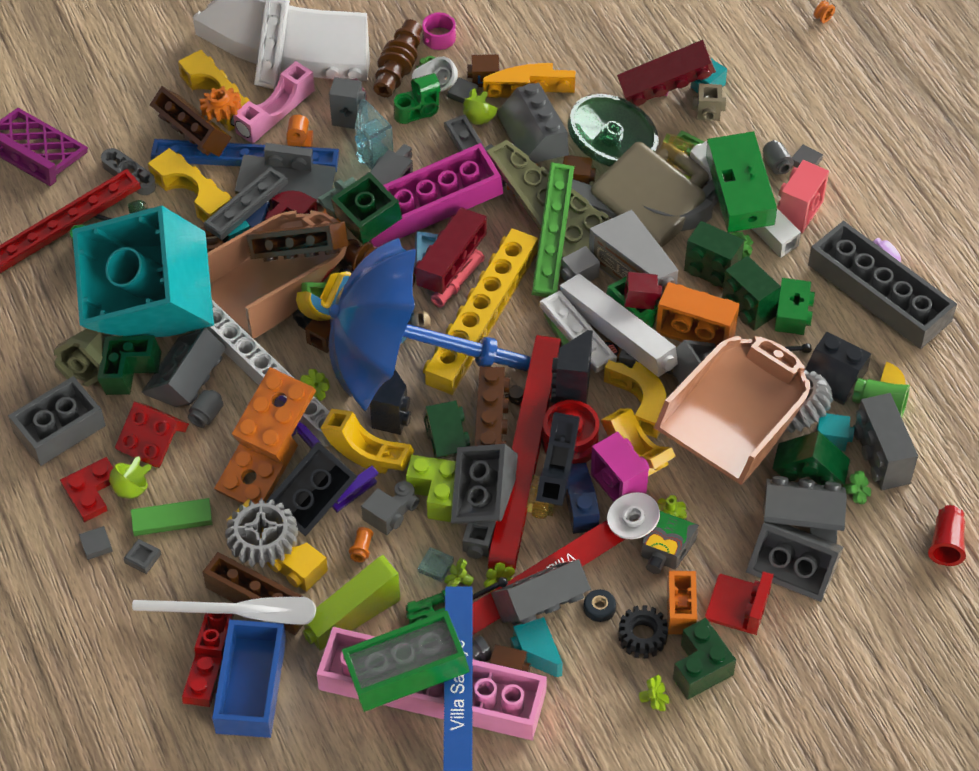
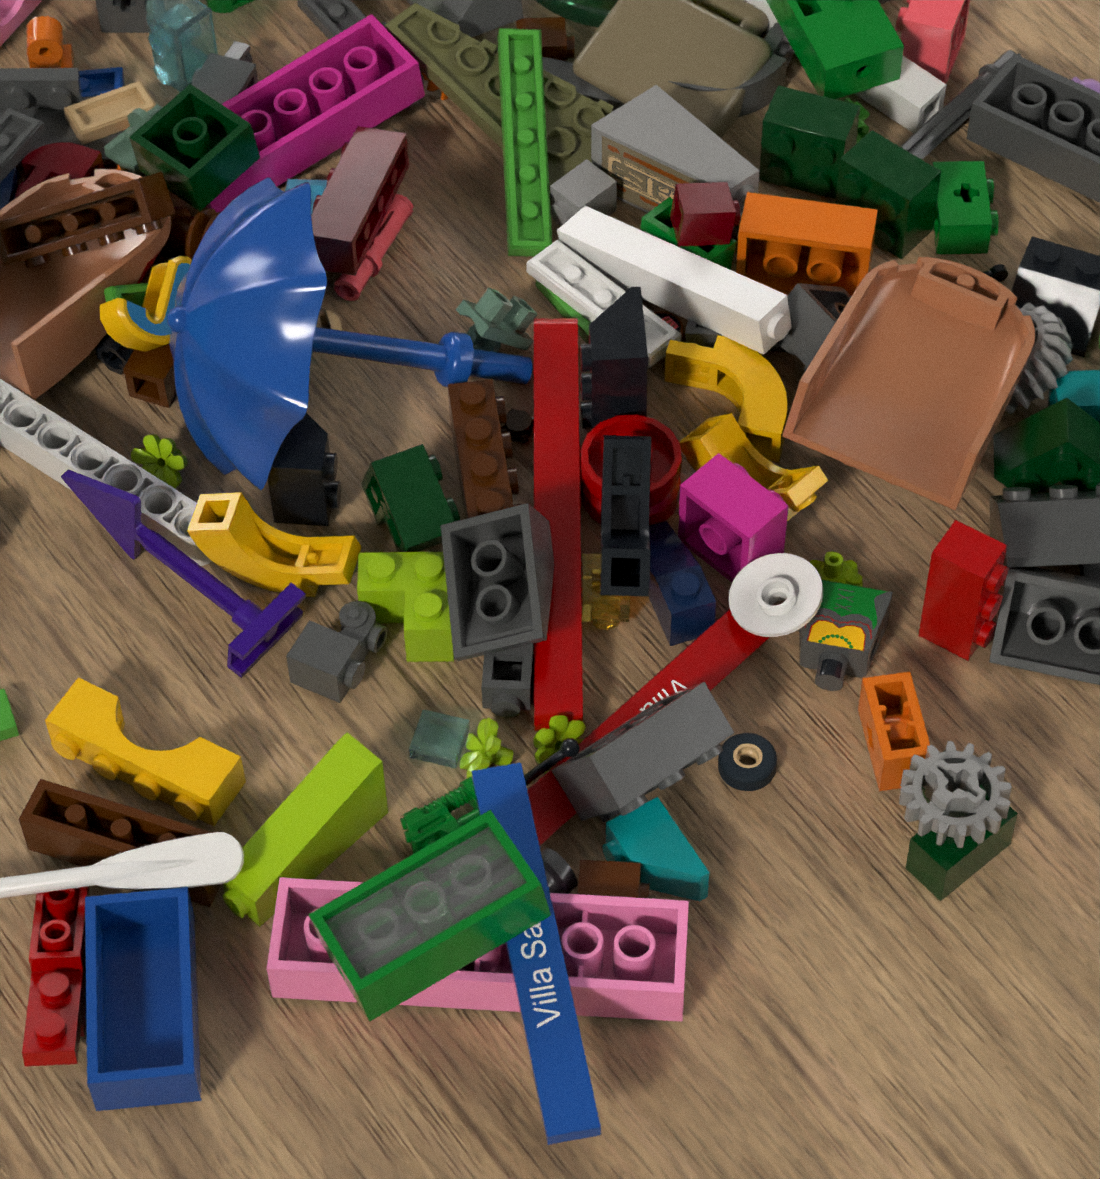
camera: 10 degrees left, 0 degrees up
(247, 525) = (84, 732): light grey gear -> none
(265, 438) = (89, 564): orange bracket -> none
(313, 487) = (192, 639): black slope -> none
(325, 175) = (107, 112): none -> tan tile
(359, 550) = (298, 736): orange pin -> none
(482, 308) = (427, 292): yellow brick -> none
(515, 334) = (498, 321): none -> sand green hips
(646, 618) = (834, 818): black tyre -> none
(655, 694) = (883, 900): lime plant -> none
(701, 643) = (956, 799): none -> light grey gear
(735, 531) = (963, 590): none -> red brick
(739, 602) = (996, 713): red bracket -> none
(800, 250) = (954, 112): none -> dark grey axle

